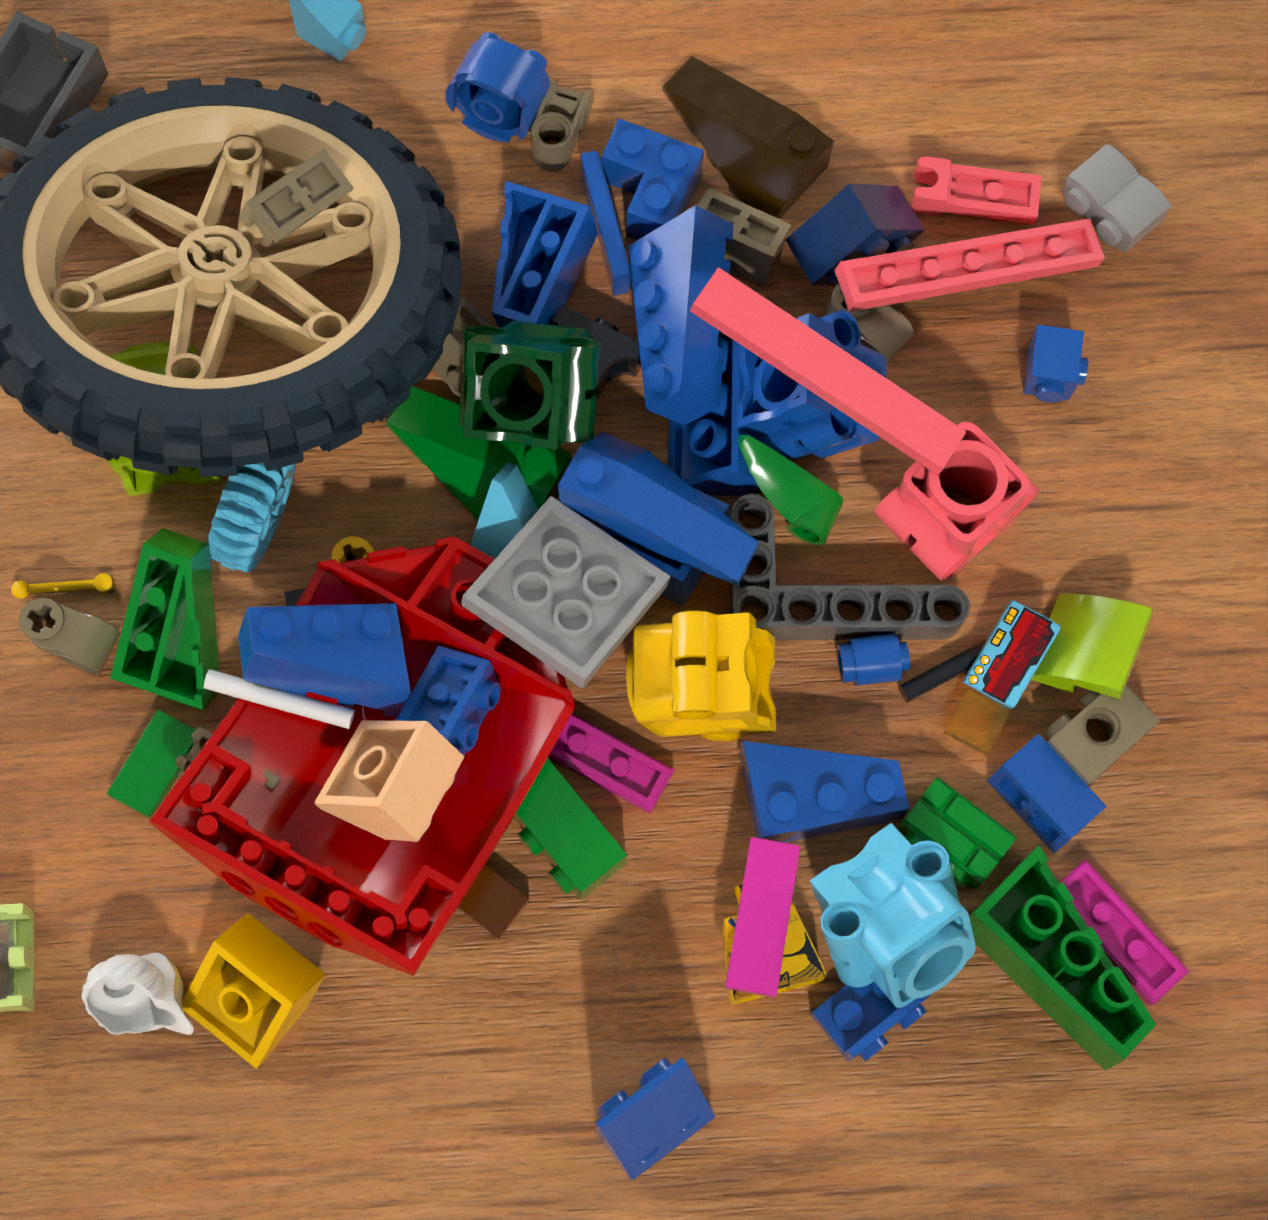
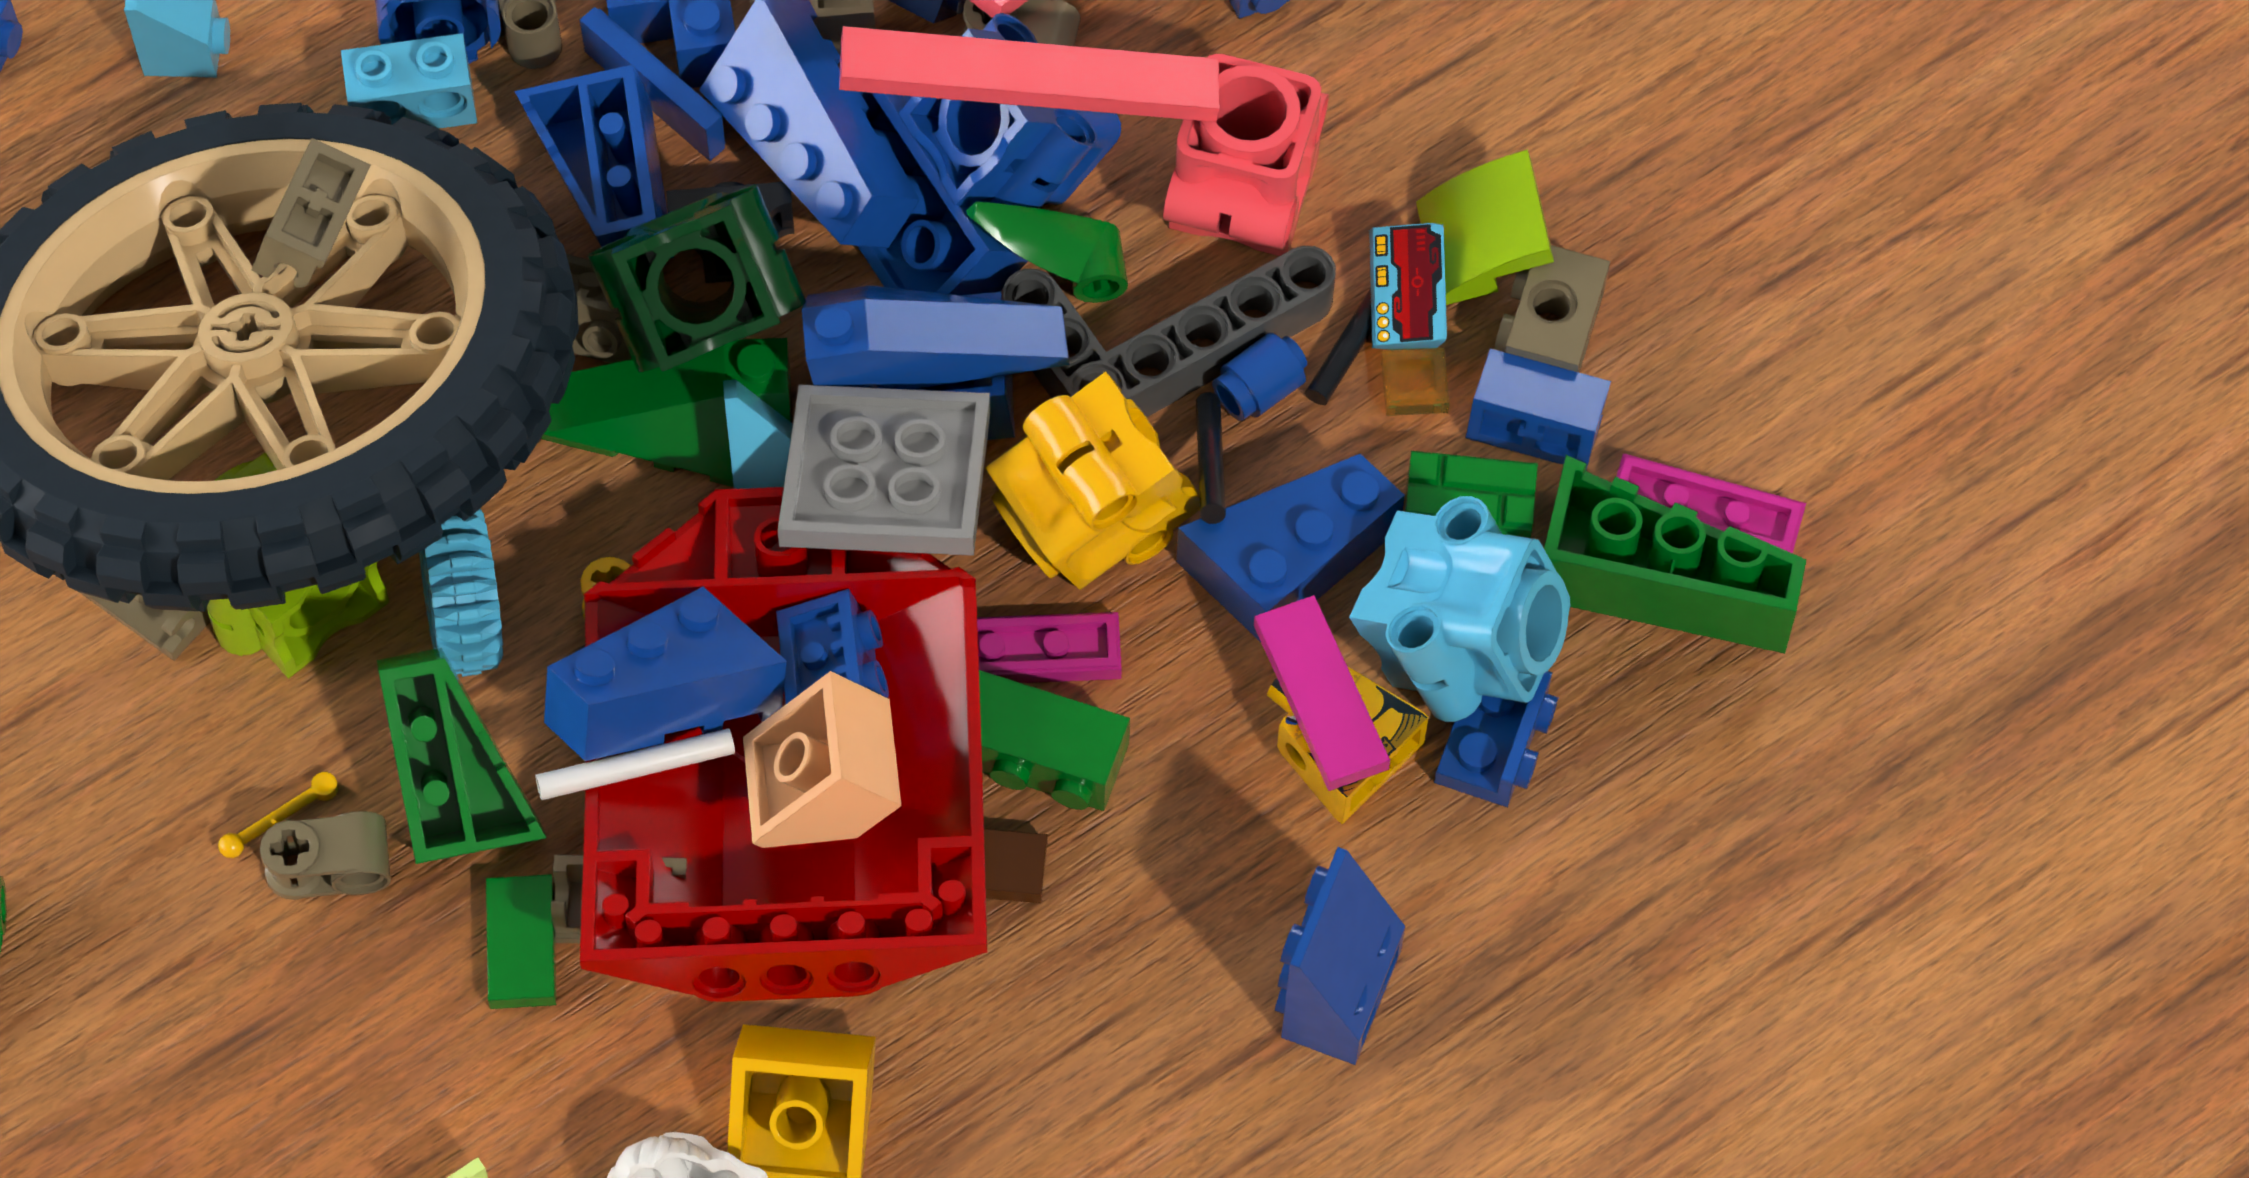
camera: 30 degrees left, 10 degrees down
(449, 137) = (413, 80): none -> medium azure brick
(798, 701) = (1210, 458): none -> black bar

